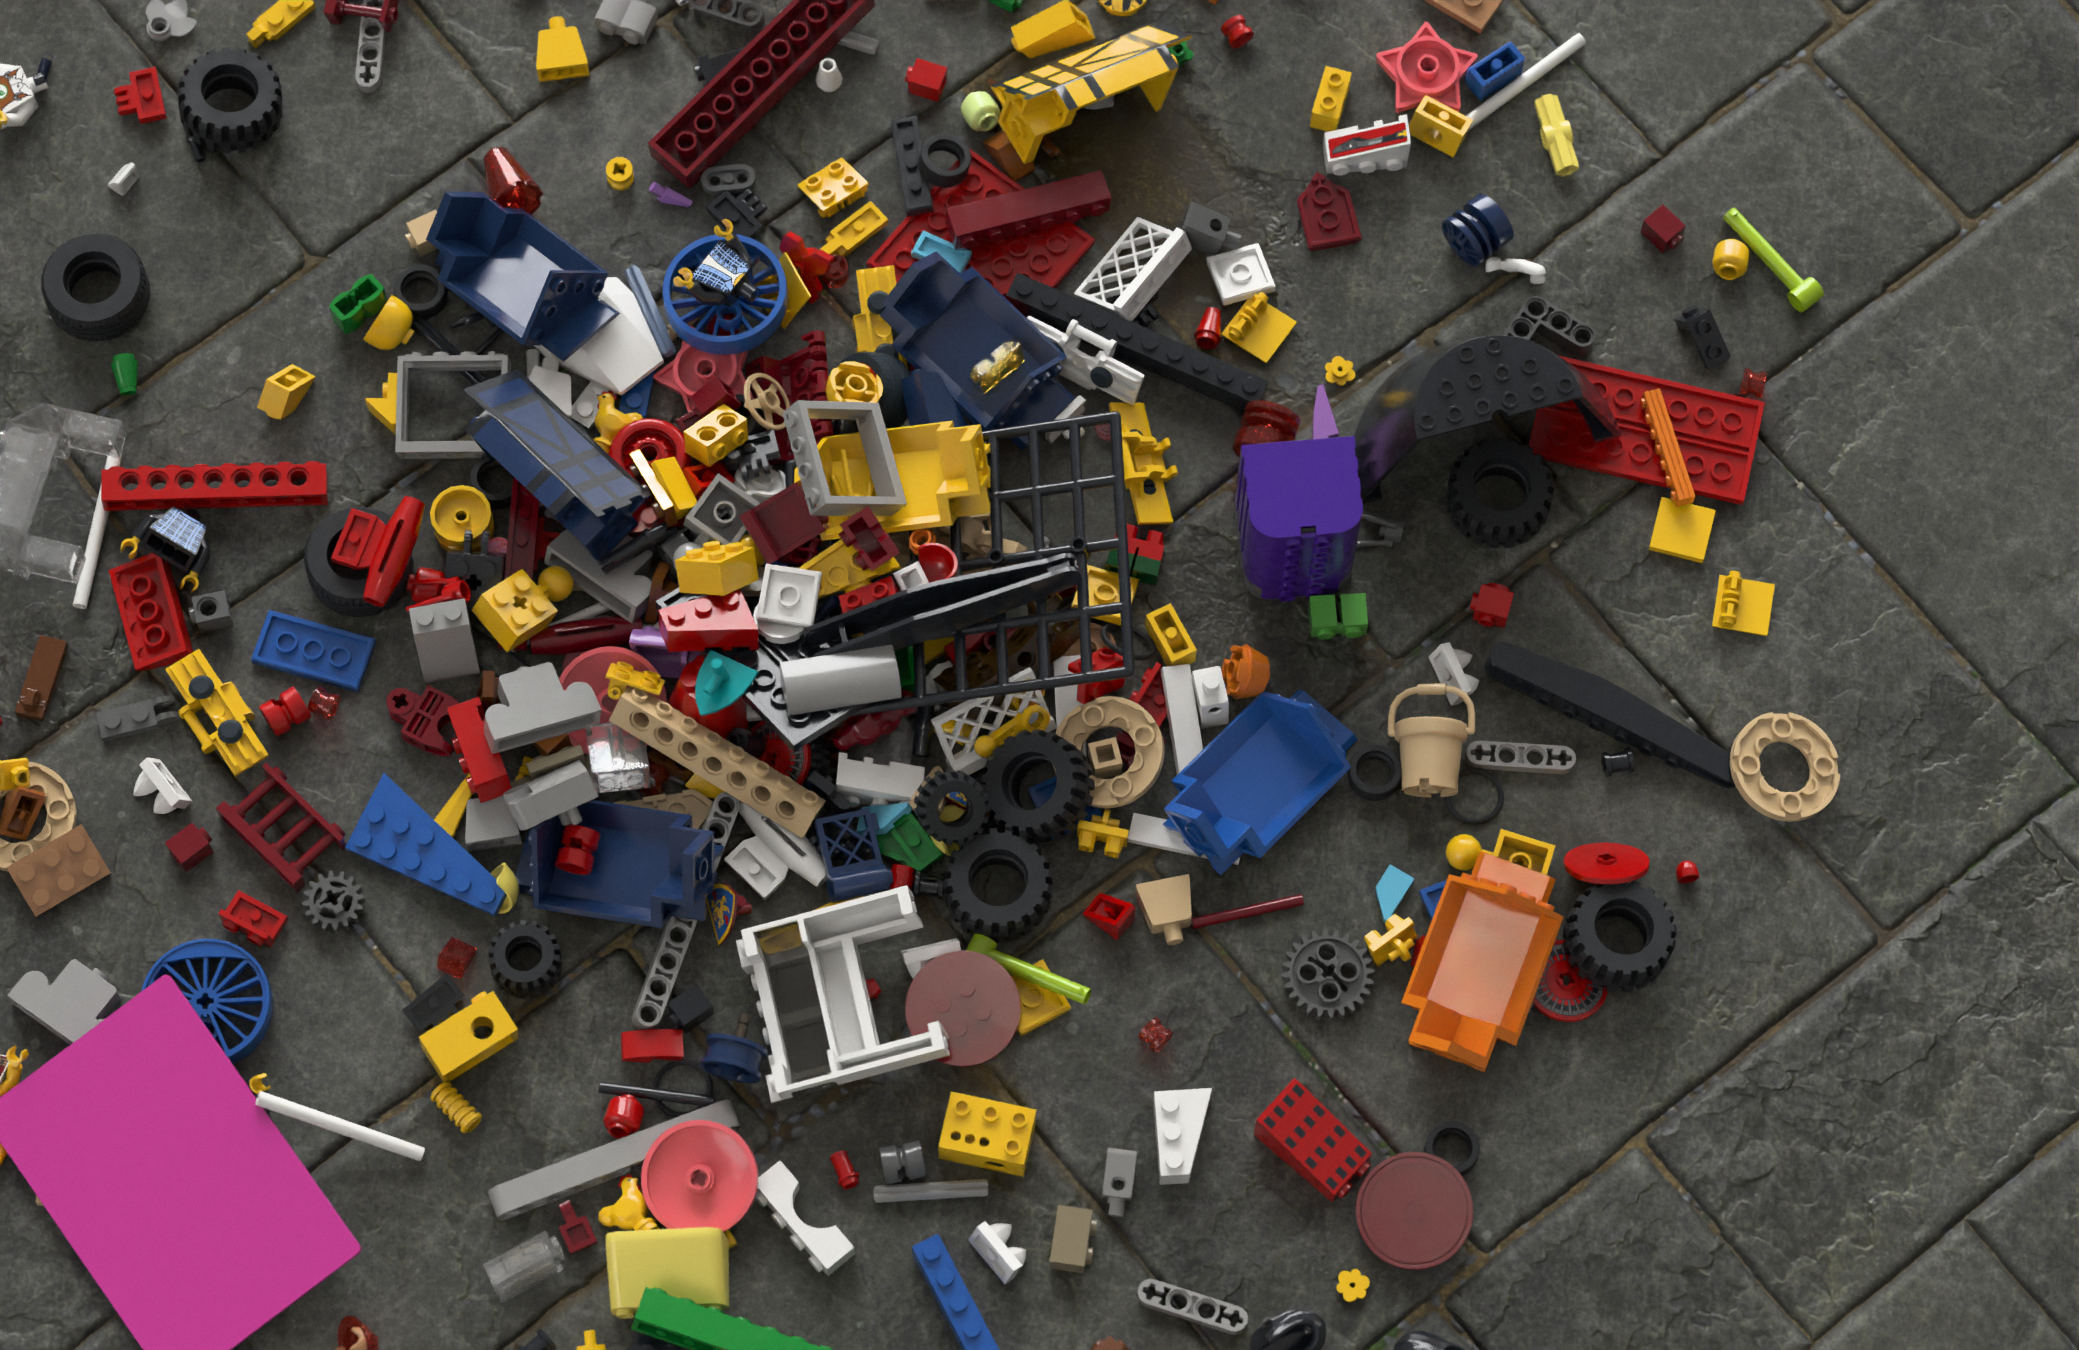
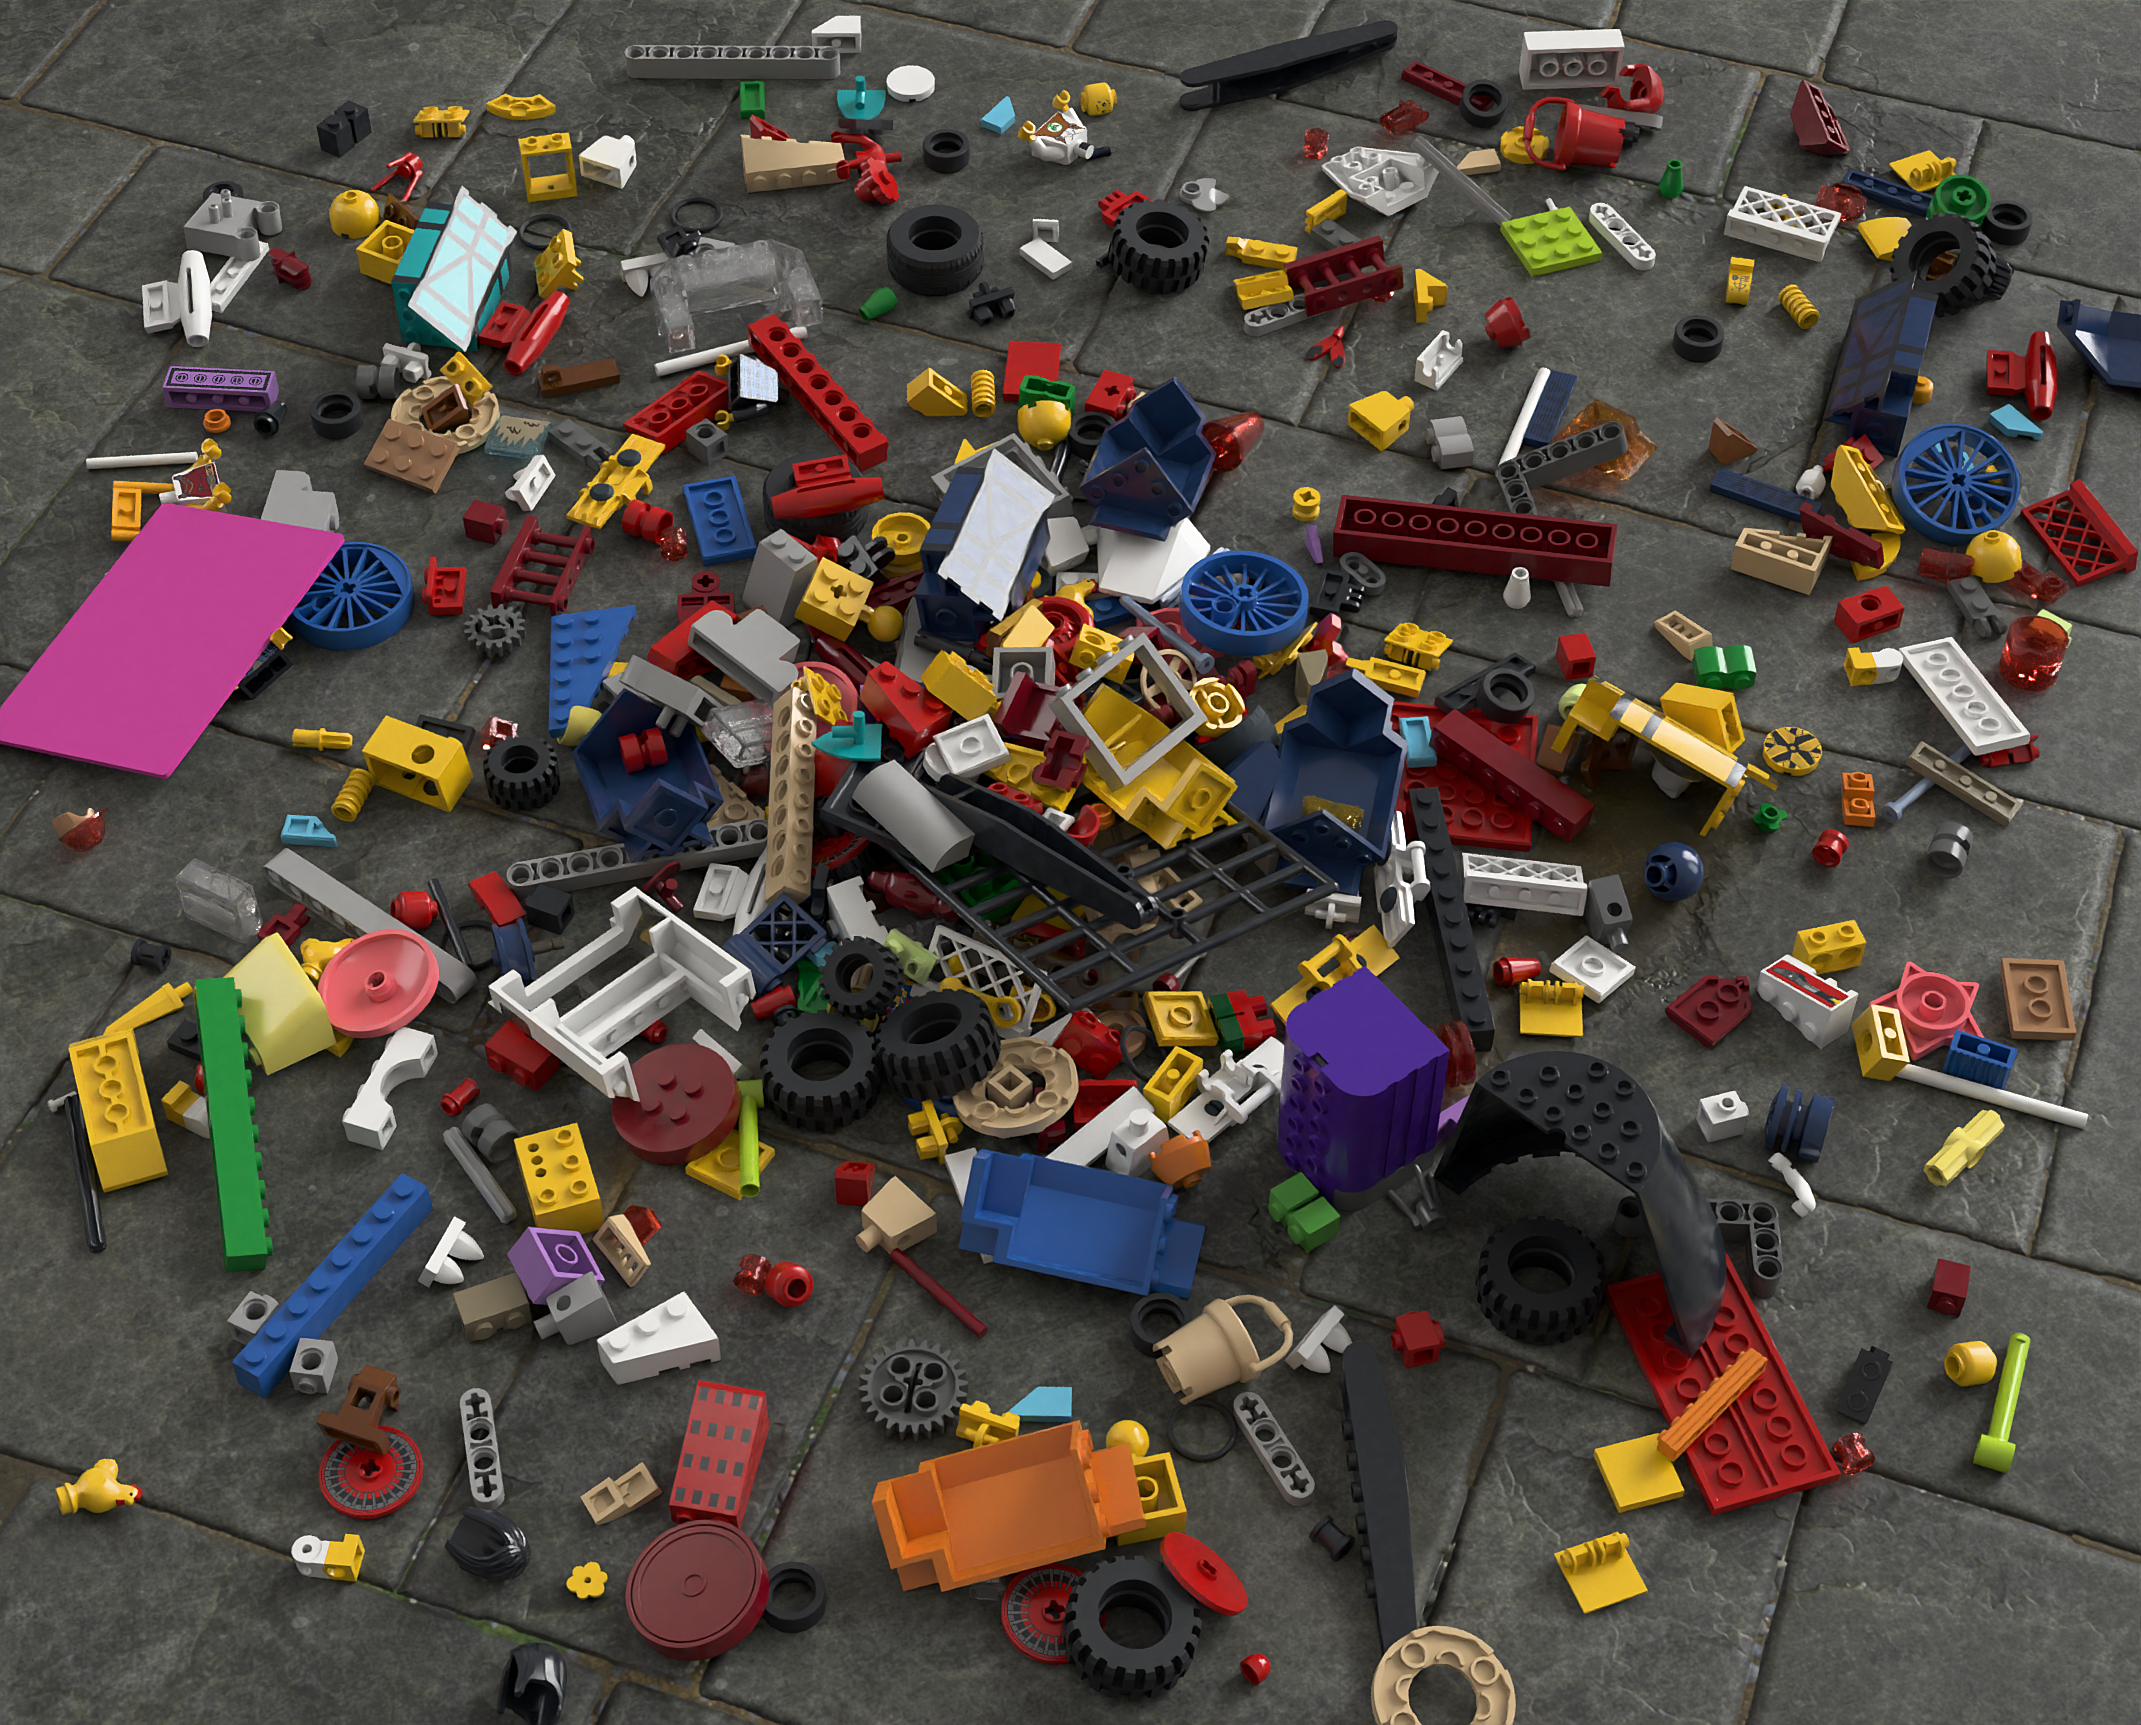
camera: 60 degrees right, 20 degrees down
(91, 767) = (517, 437): none -> slope
(159, 199) = (1045, 258): none -> white tile
(198, 269) = (989, 301): none -> black hips
(298, 293) = (1029, 359): none -> red tile
(306, 350) = (983, 393): none -> yellow piece
(333, 47) = (1263, 289): none -> yellow slope
(339, 1126) = (280, 717): white piece -> none
(371, 1102) = (321, 739): none -> yellow axle
(376, 246) = (1111, 395): none -> red brick
(437, 33) = (1332, 344): none -> red piece
(469, 1163) = (306, 831): none -> medium azure tile
(709, 372) = (1203, 662): none -> sand blue bar
(722, 274) = (1251, 578): torso -> none
(834, 1105) = (520, 1057): none -> red brick
(837, 295) = (1310, 670): none -> dark tan tile
(936, 758) = (913, 956): none -> yellowish green hips
(1049, 1096) = (643, 1222): none -> clear red slope
(1063, 1109) = (606, 1240): none -> tan slope
(1073, 1174) = (550, 1261): none -> medium lavender brick
(1184, 1013) = (789, 1284): none -> red head
(1190, 597) = (1223, 1091): none -> white piece
(1197, 158) = (1673, 871): none -> dark blue brick
(1292, 1226) = (616, 1498): none -> tan slope
(1431, 276) = (1722, 1116): none -> white brick

